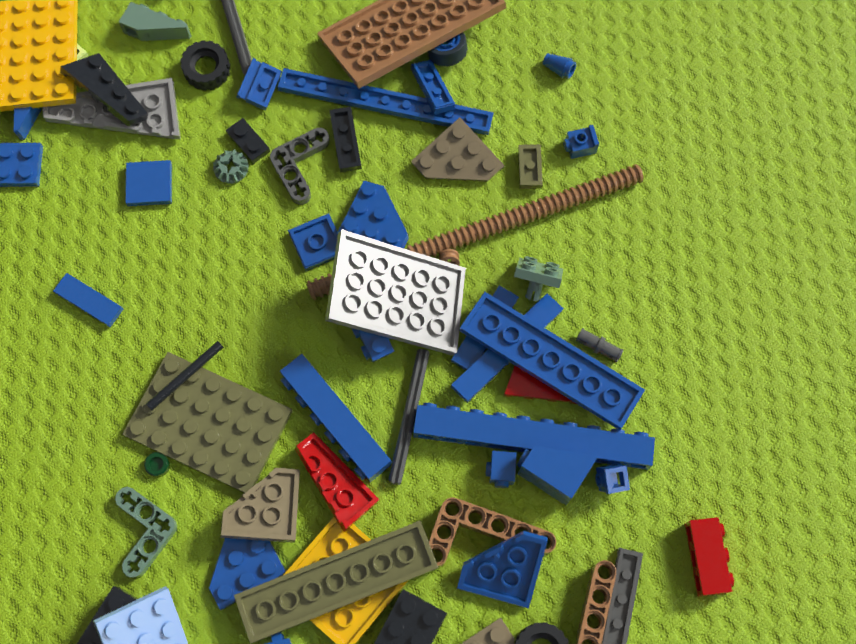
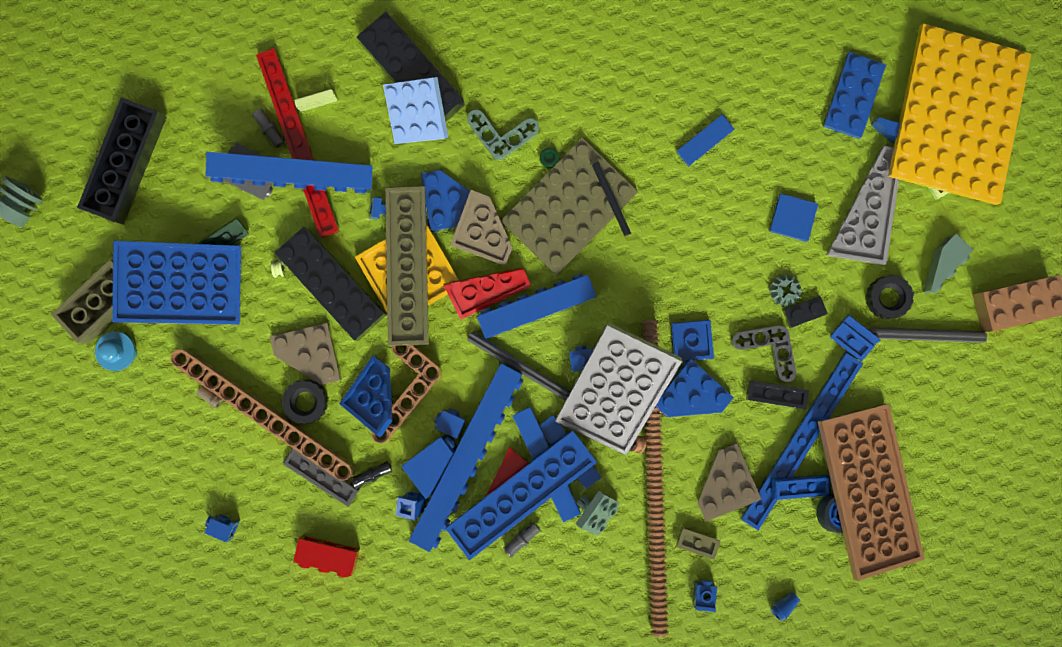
camera: 110 degrees right, 15 degrees up
(105, 86) = (900, 202): black wing -> none
(595, 539) = (371, 474): none -> black pin

